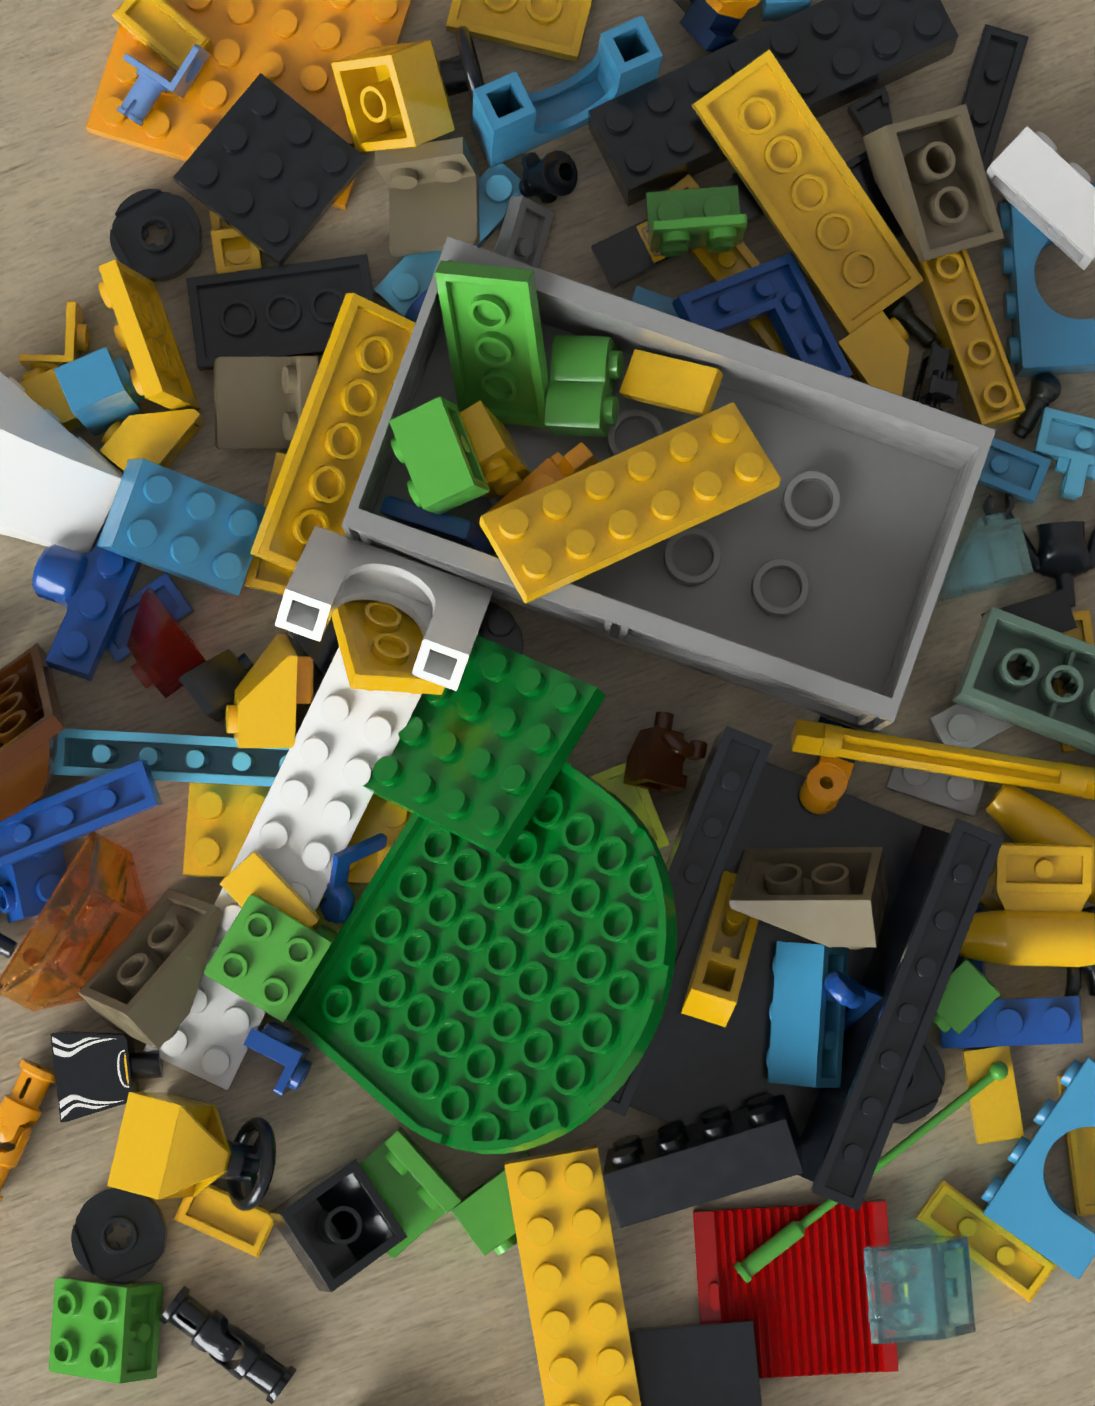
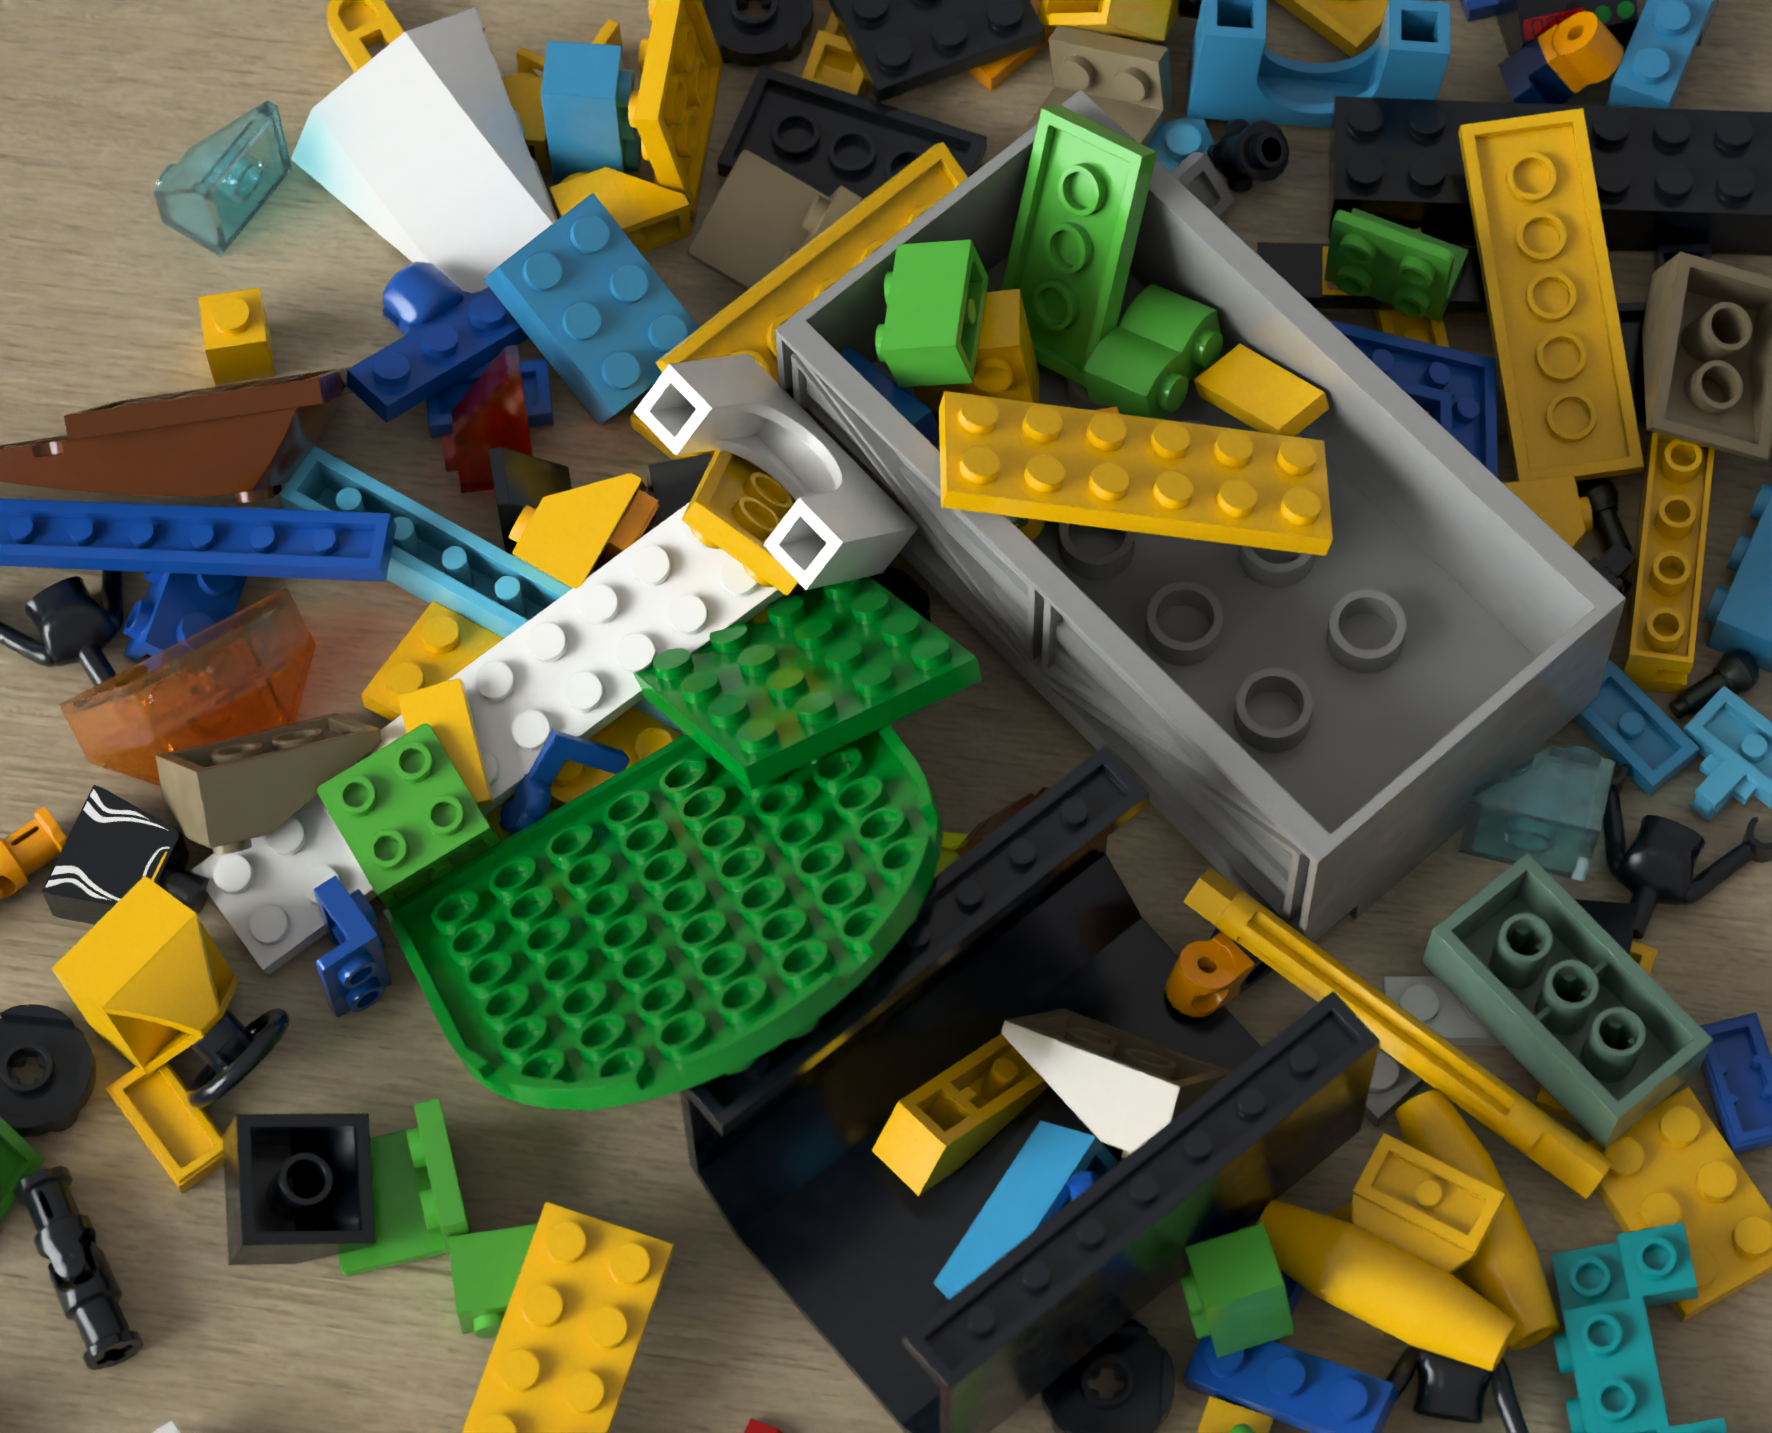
camera: 30 degrees right, 20 degrees down
(702, 1160) = (789, 1328): black brick -> none

